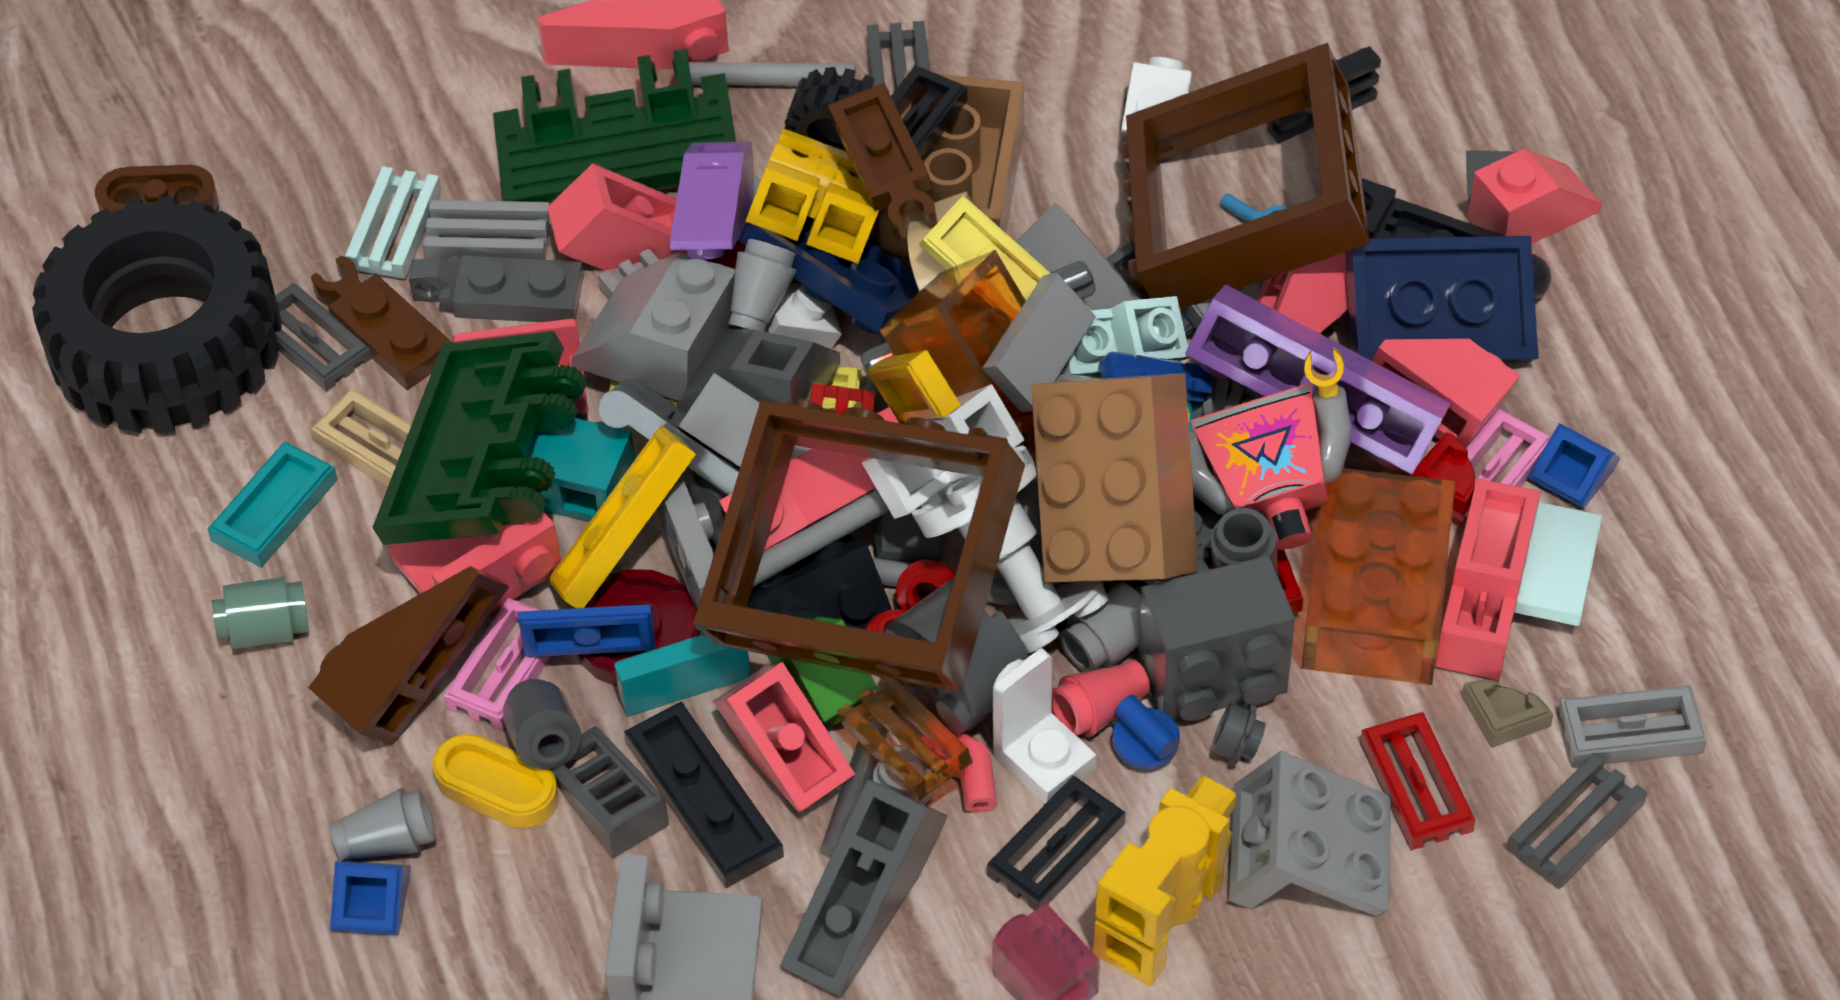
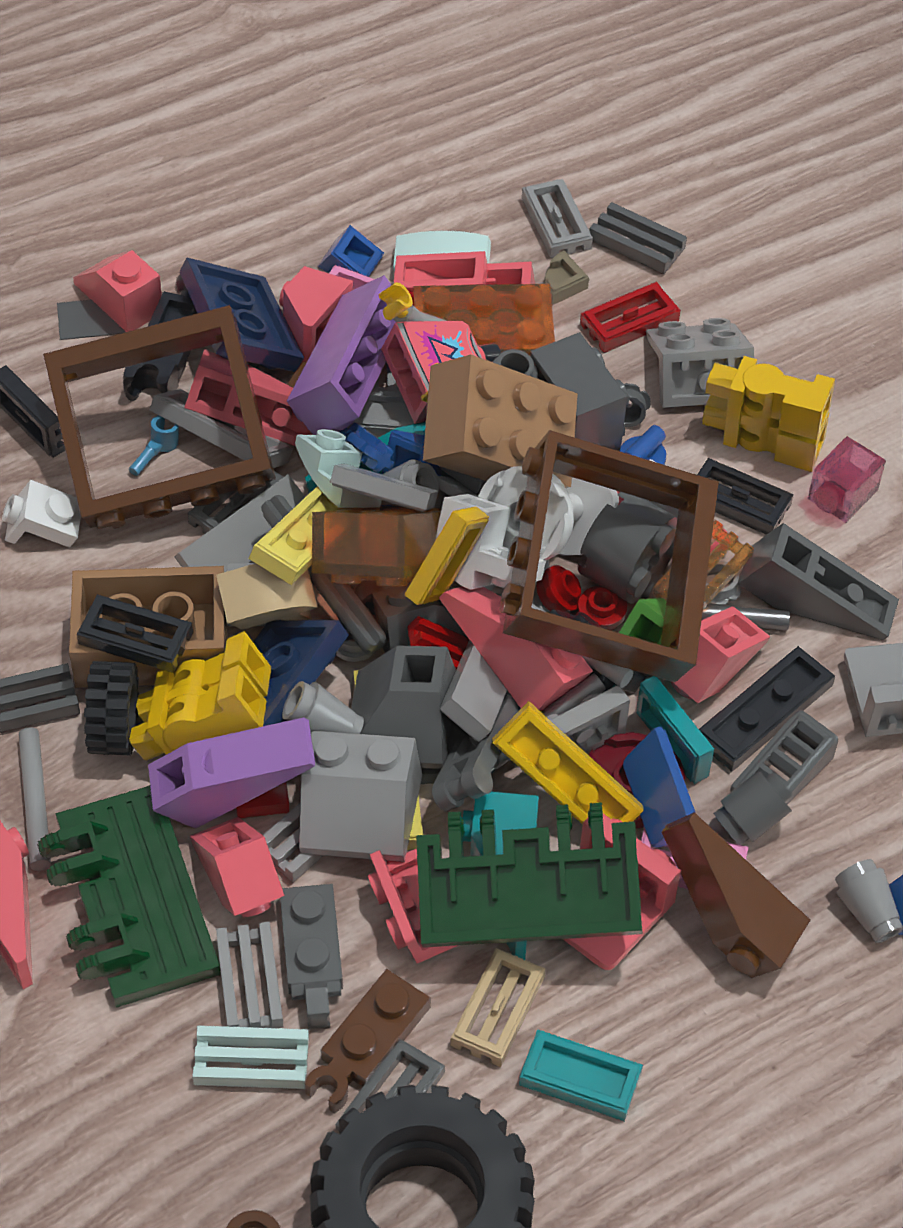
camera: 105 degrees left, 0 degrees up
(260, 612) = (702, 1042): sand green brick -> none
(494, 781) = (797, 846): yellow tile -> none
(884, 156) = (200, 623): reddish brown plate -> none

